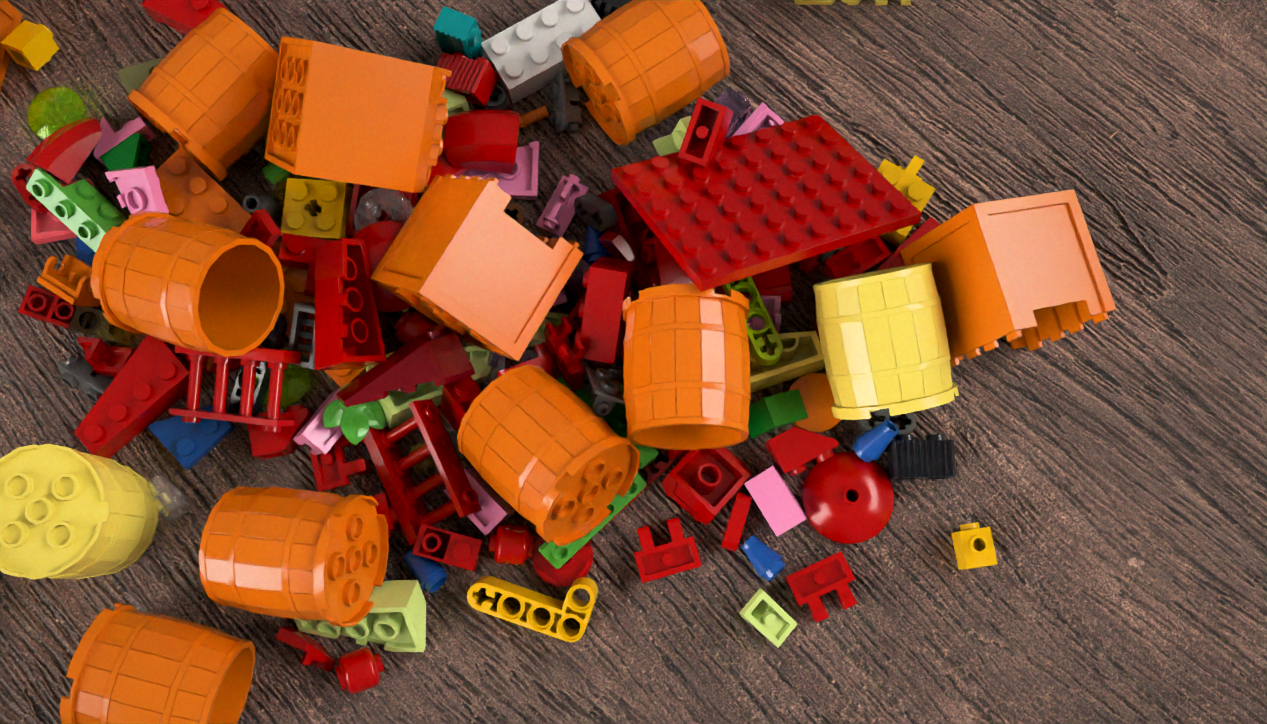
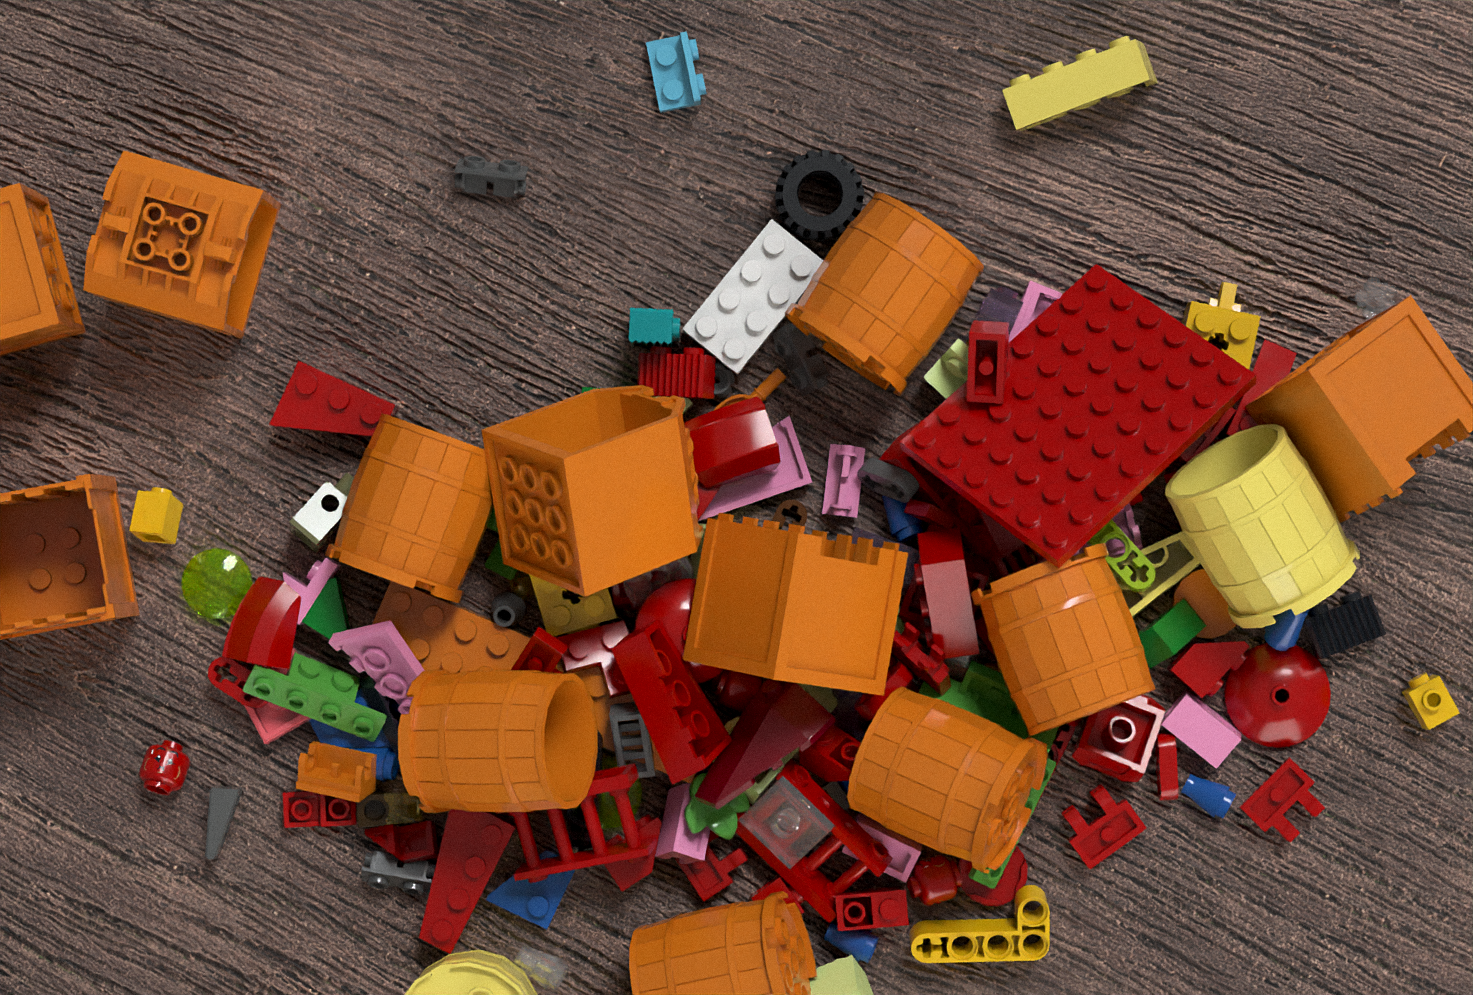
camera: 25 degrees left, 10 degrees up
(404, 445) = (786, 822): none -> clear plate
(603, 390) = (982, 690): dark grey hinge -> none
(768, 618) = (1236, 857): yellowish green slope -> none

